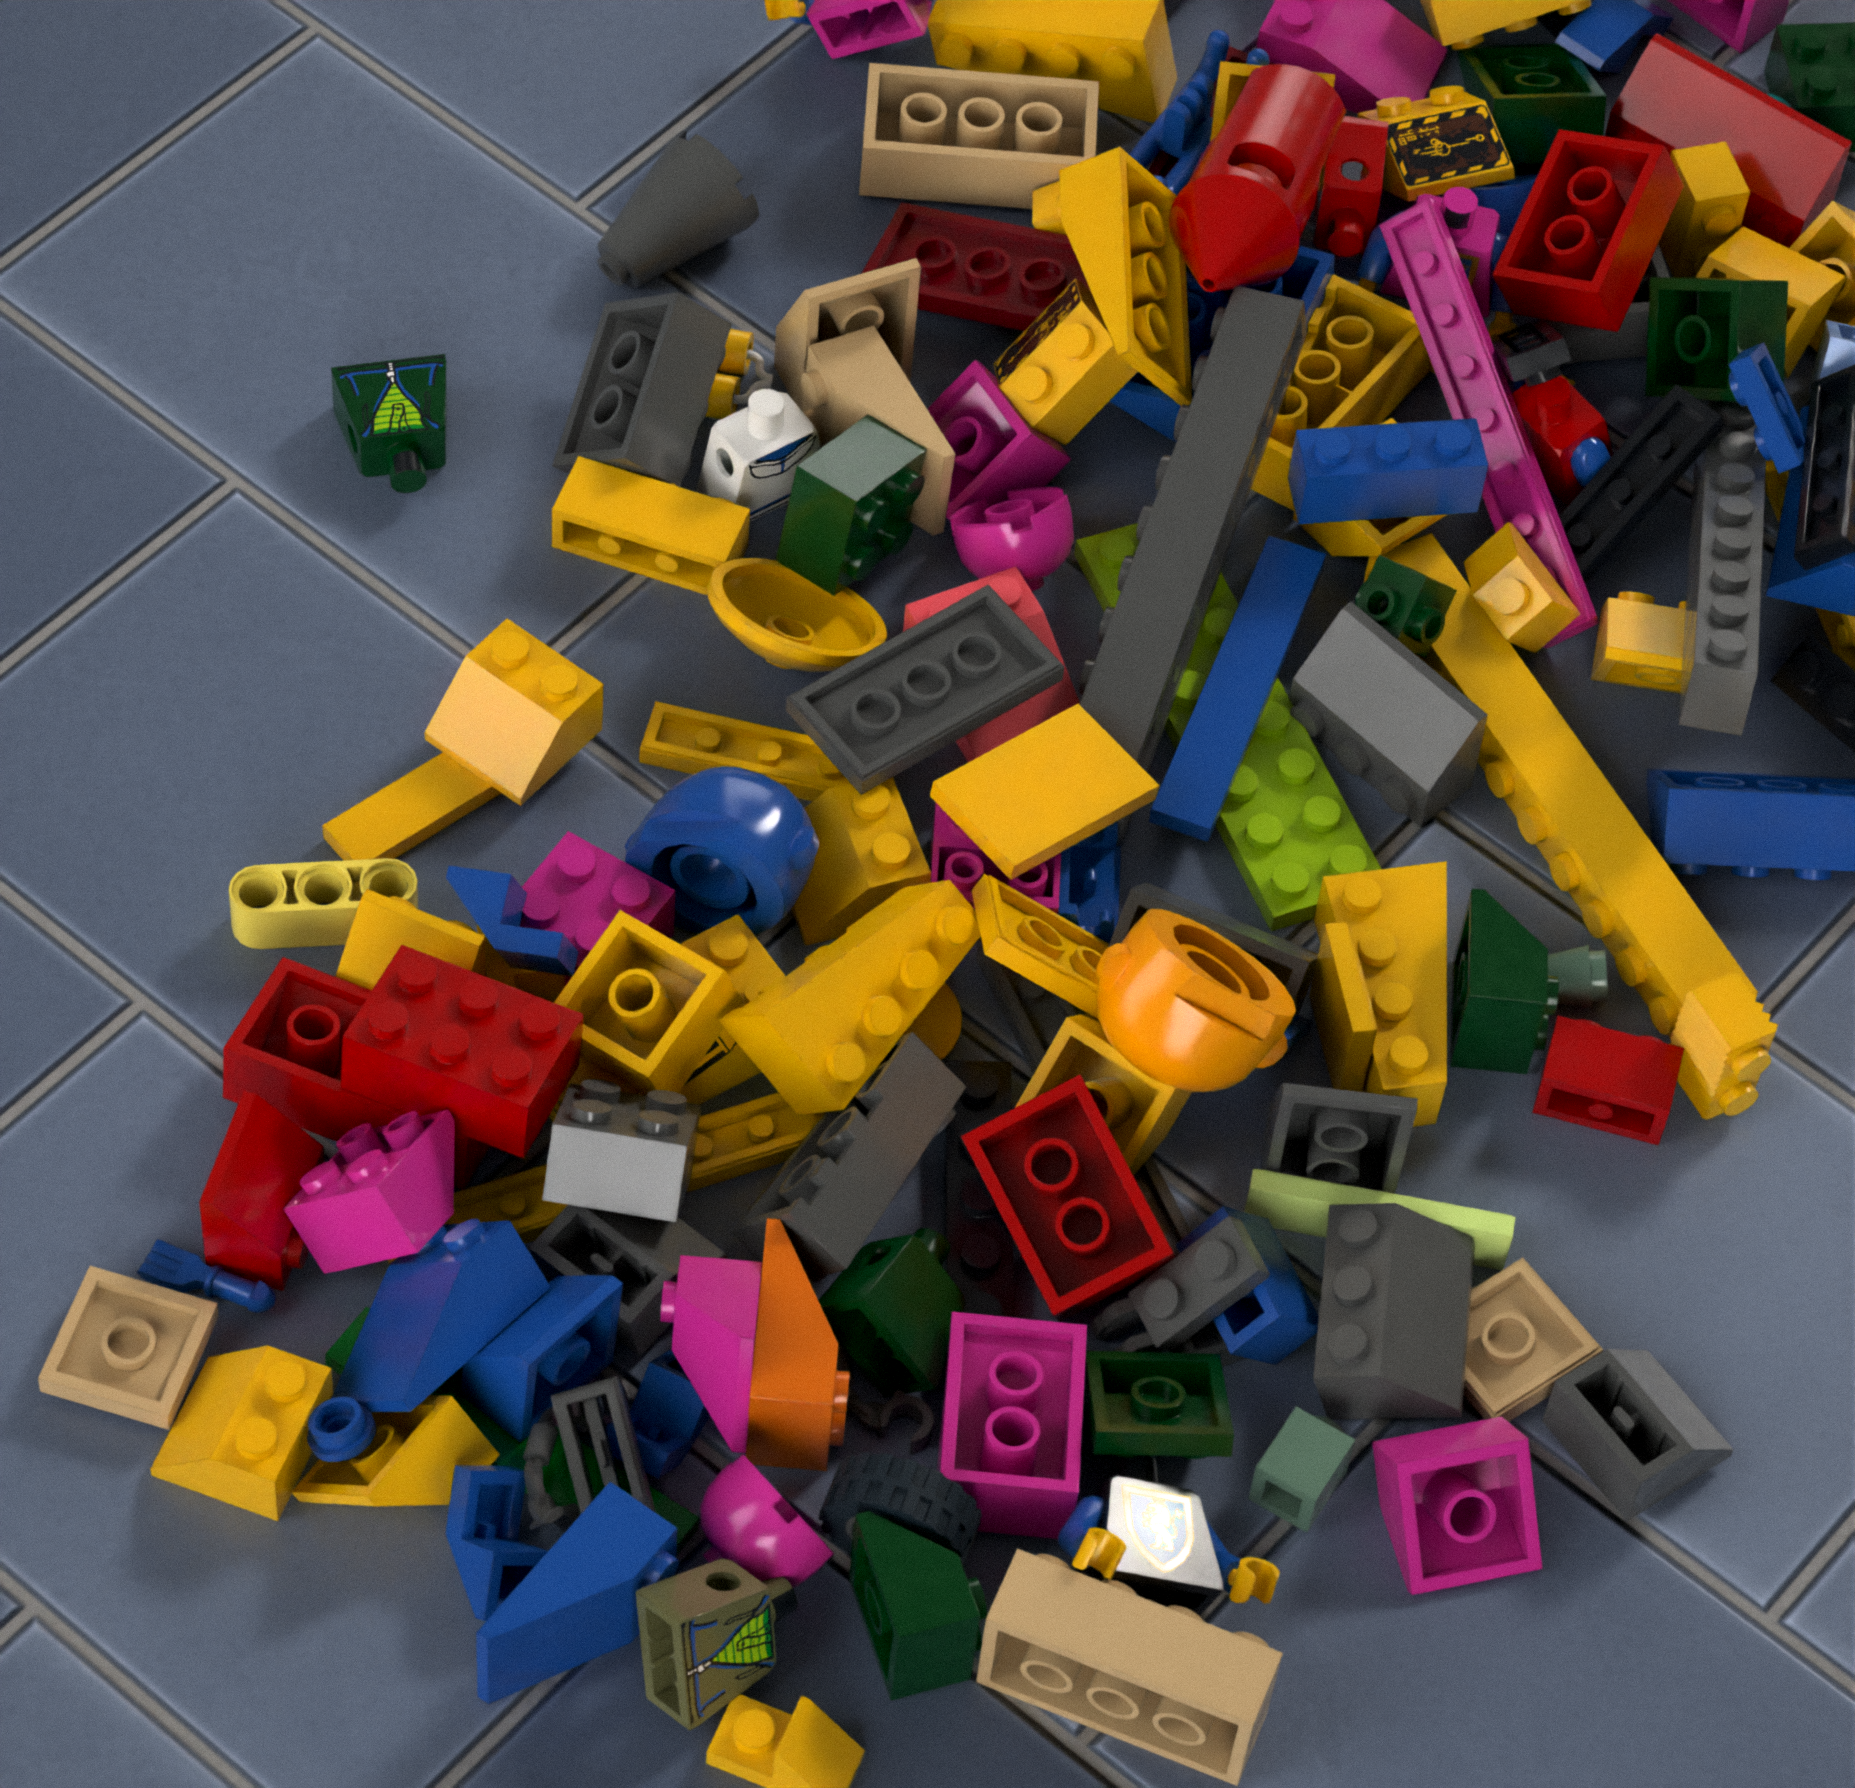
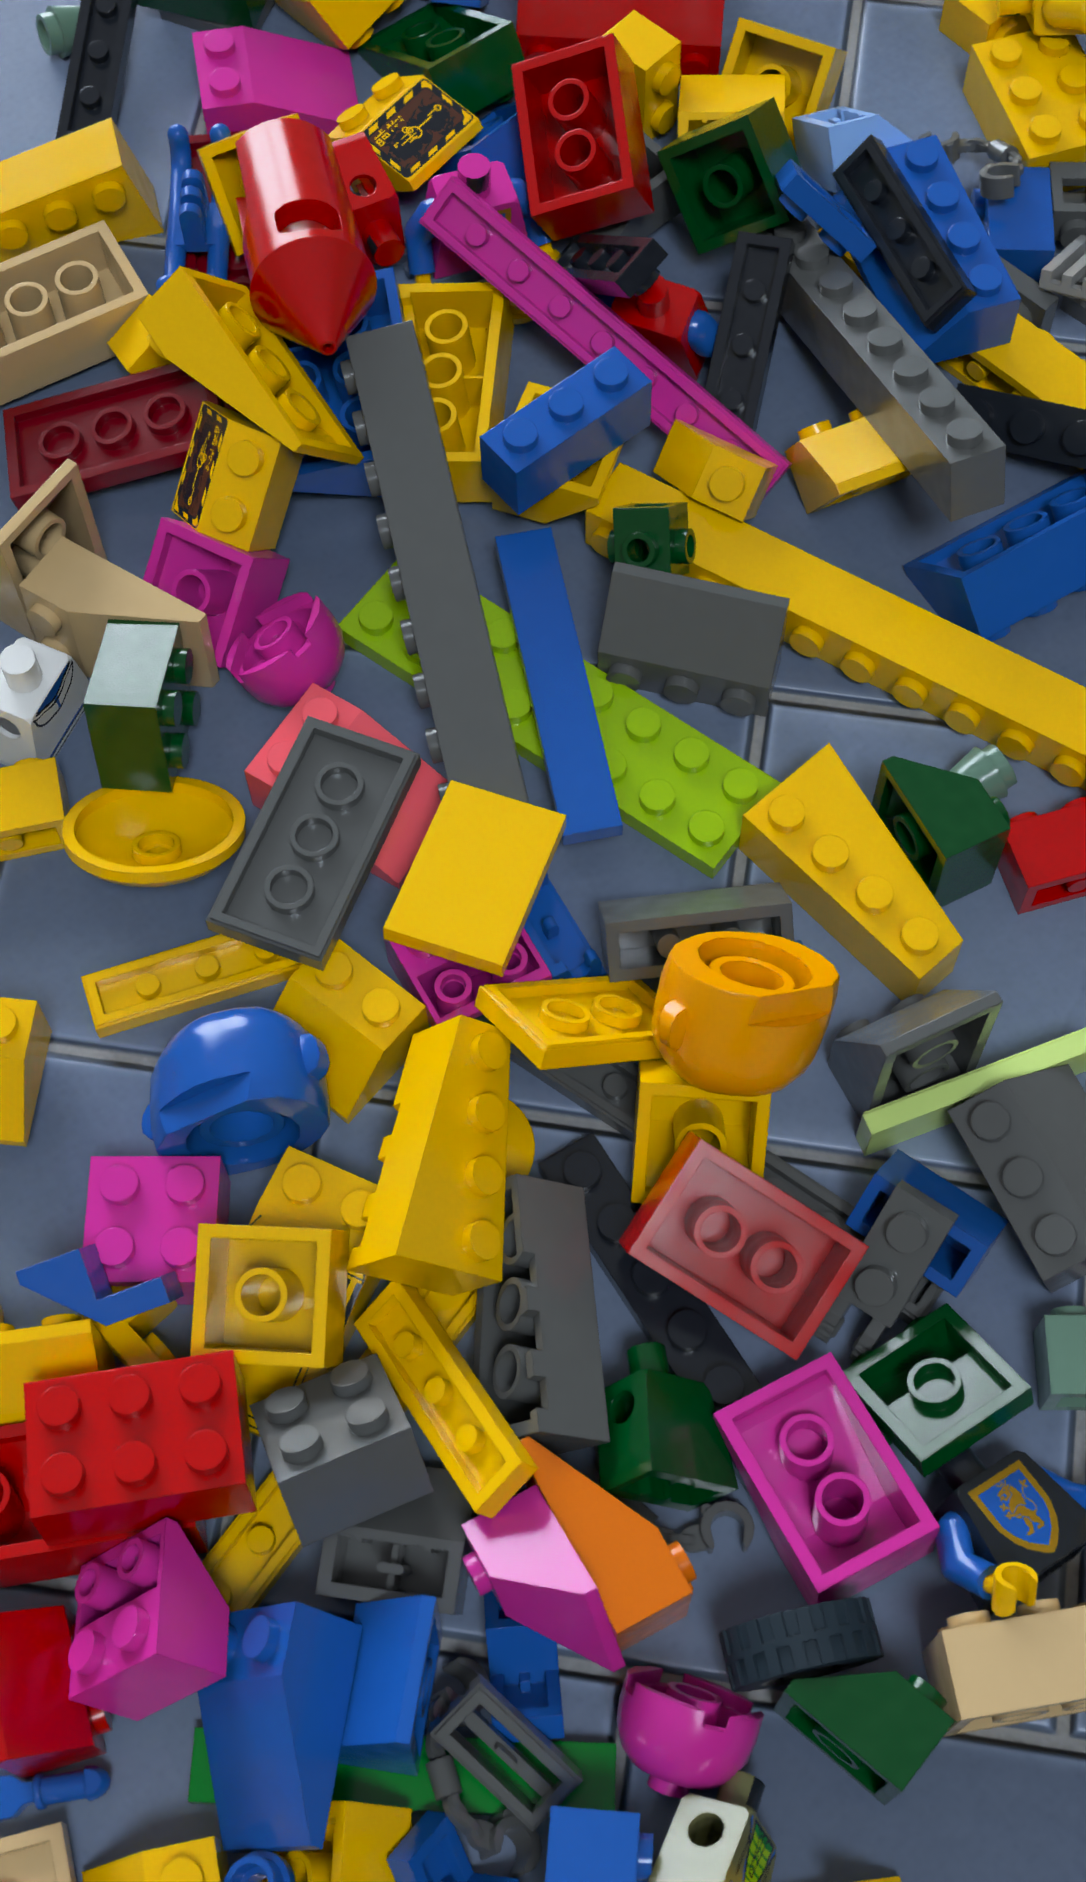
camera: 25 degrees left, 10 degrees up
(734, 1164) = (446, 1399): none -> yellow plate
(1342, 1008) = (838, 925): yellow tile -> none

